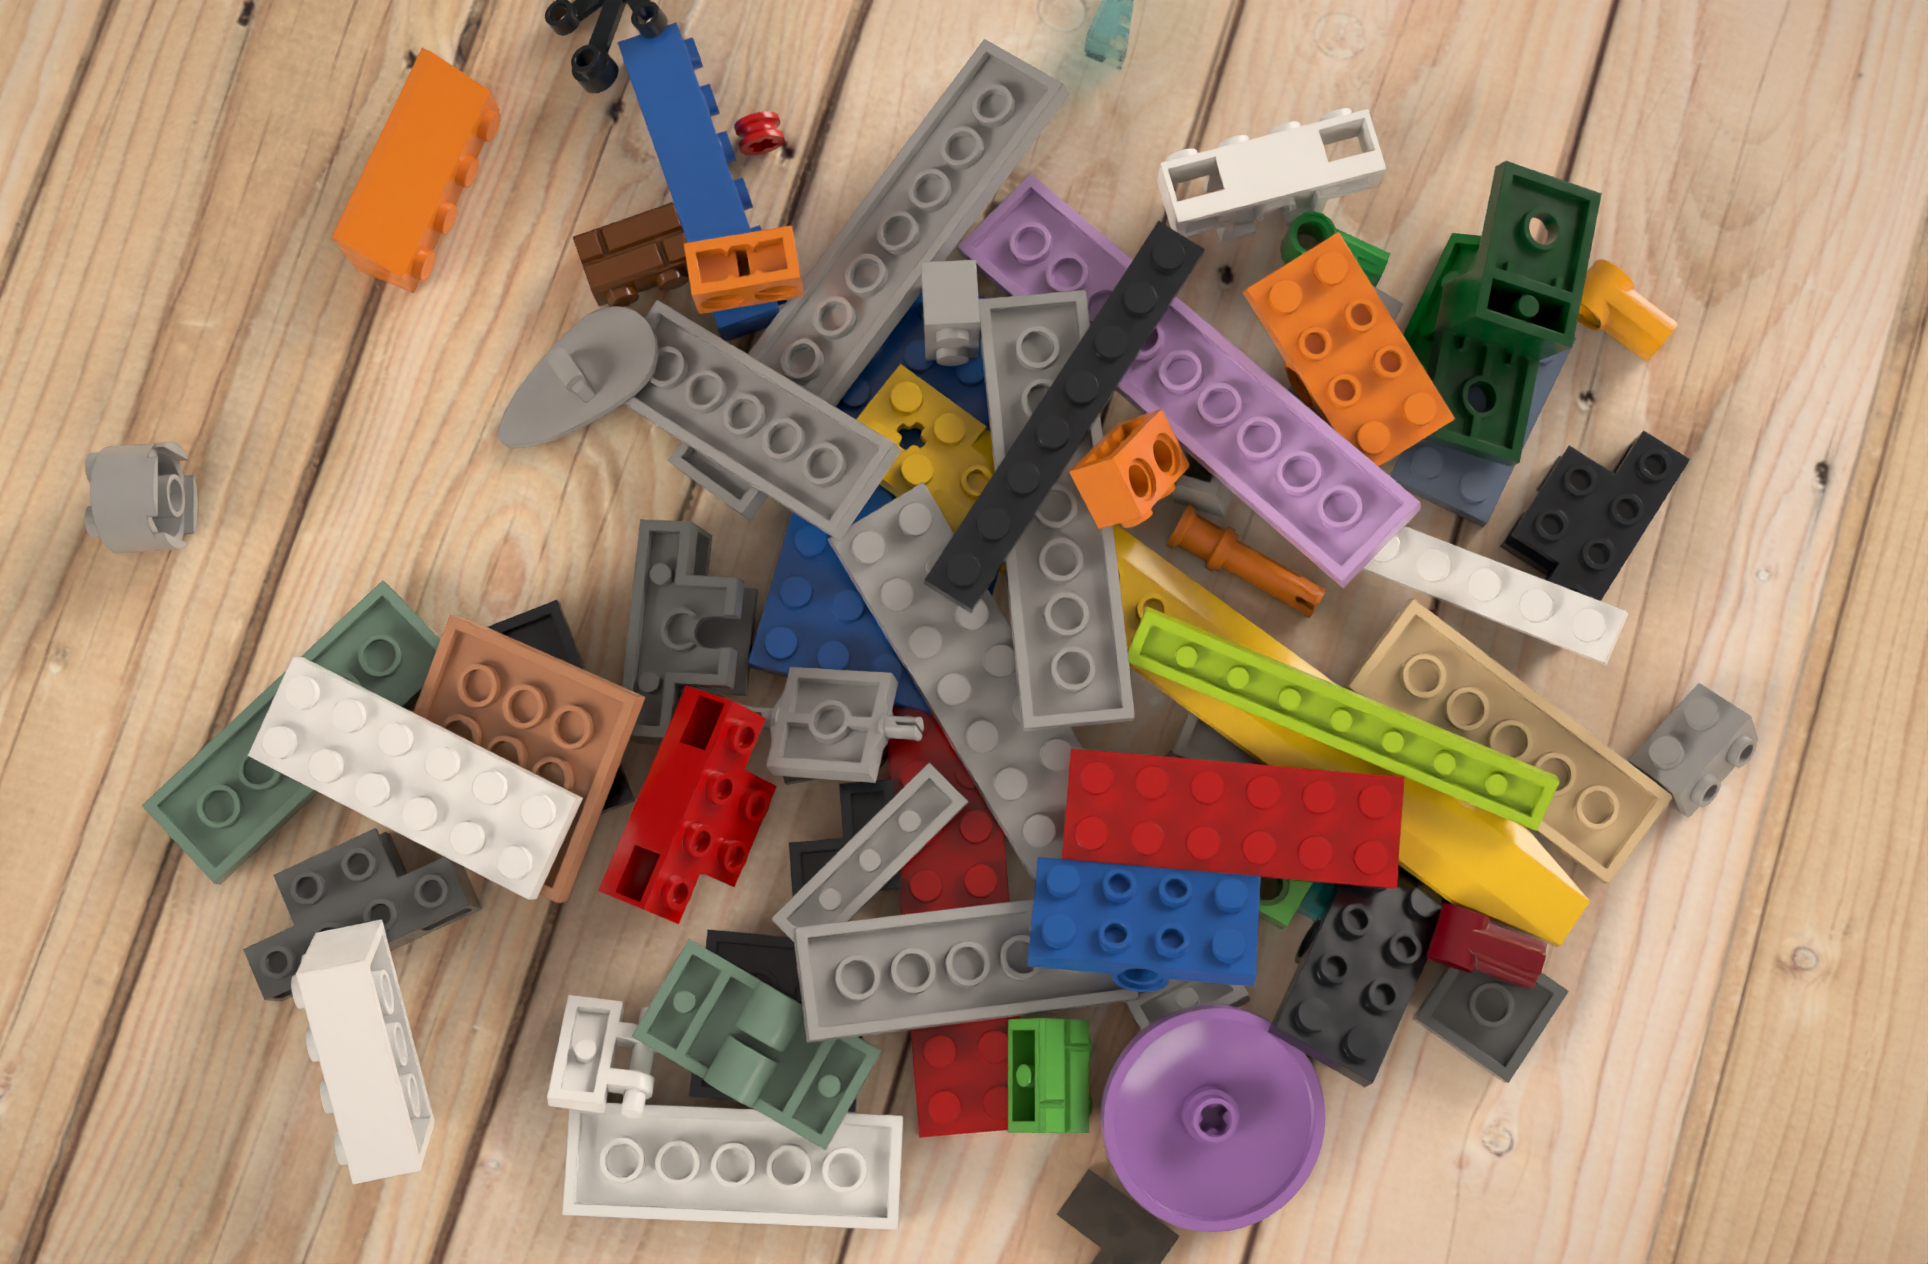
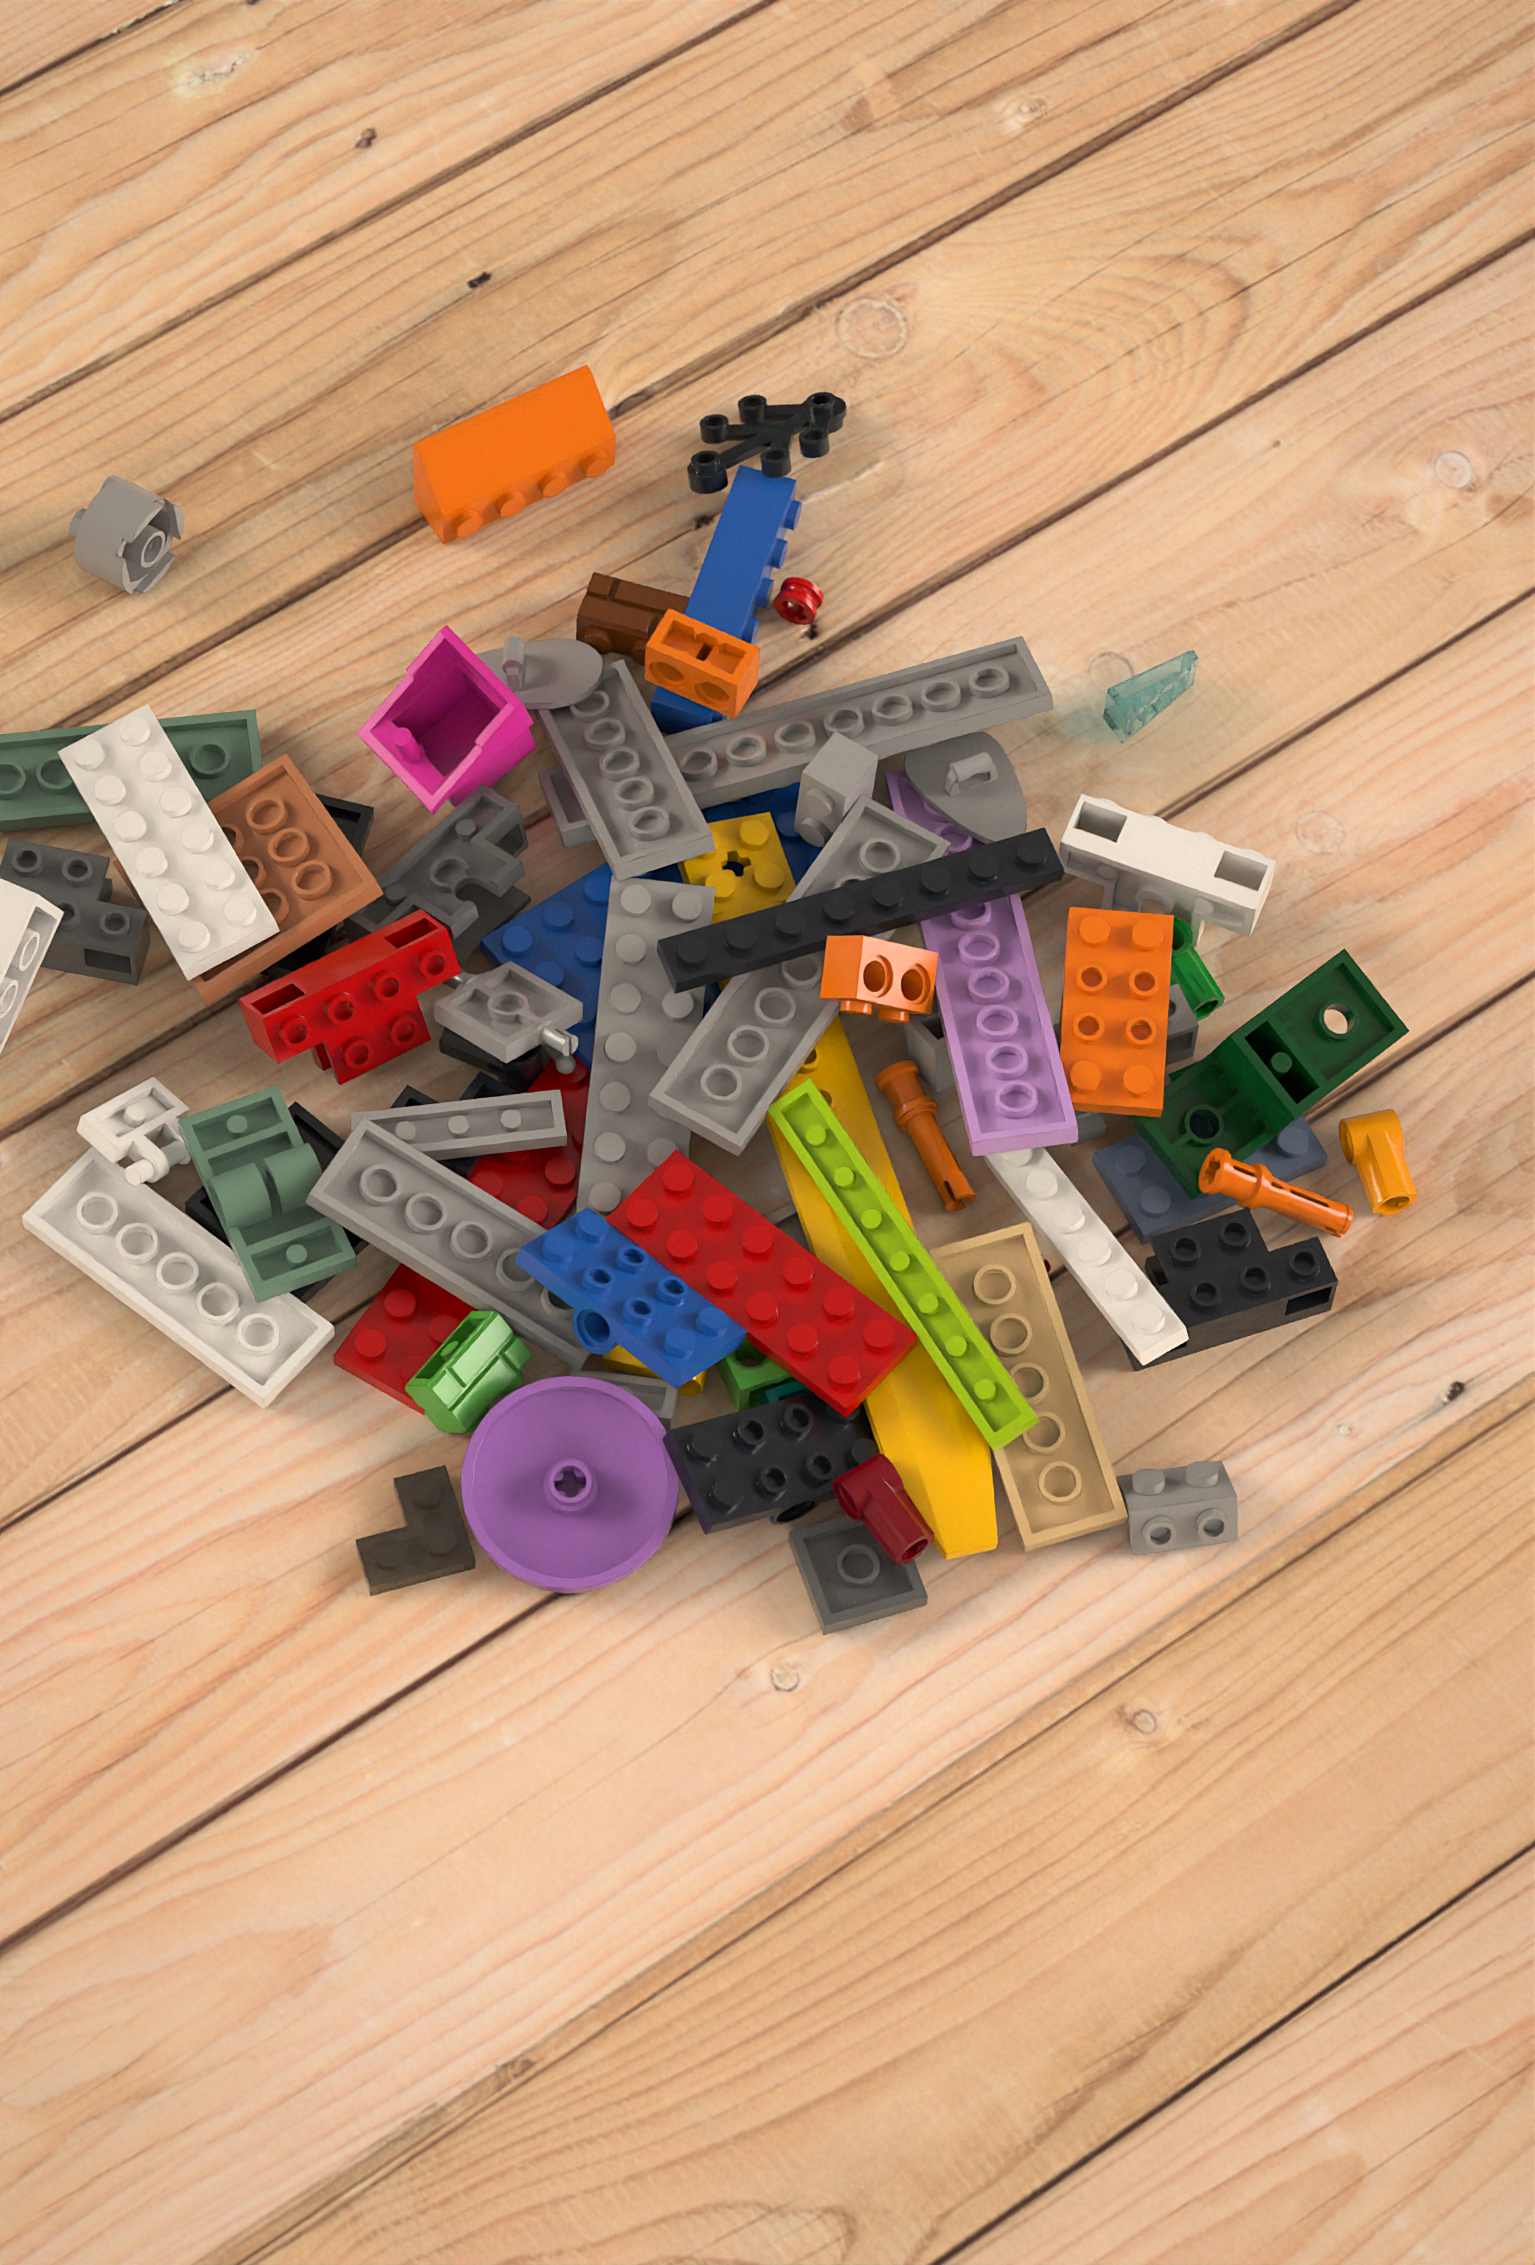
camera: 30 degrees right, 20 degrees down
(569, 490) = (449, 725): none -> dark pink piece
(1052, 215) = (970, 785): none -> light grey shield
(1562, 422) = (1256, 1187): none -> orange pin

